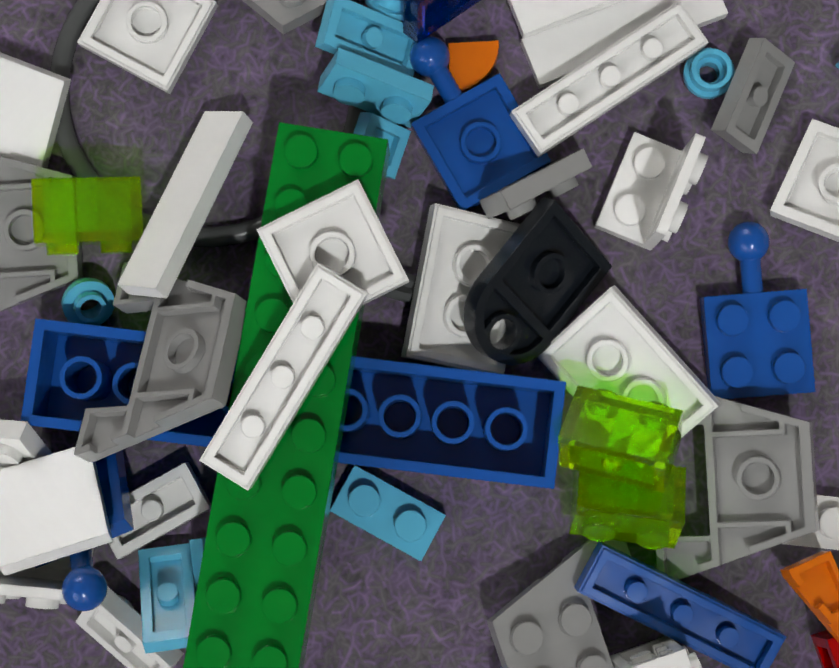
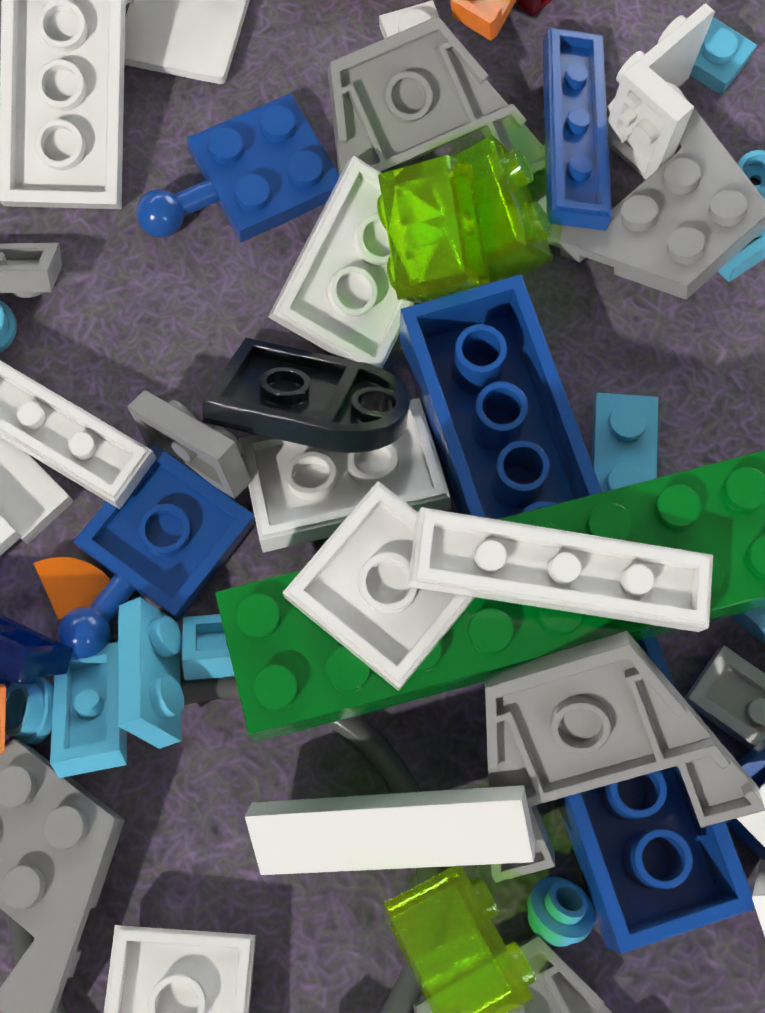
camera: 120 degrees left, 10 degrees down
(648, 190) = (142, 318): white bracket -> none

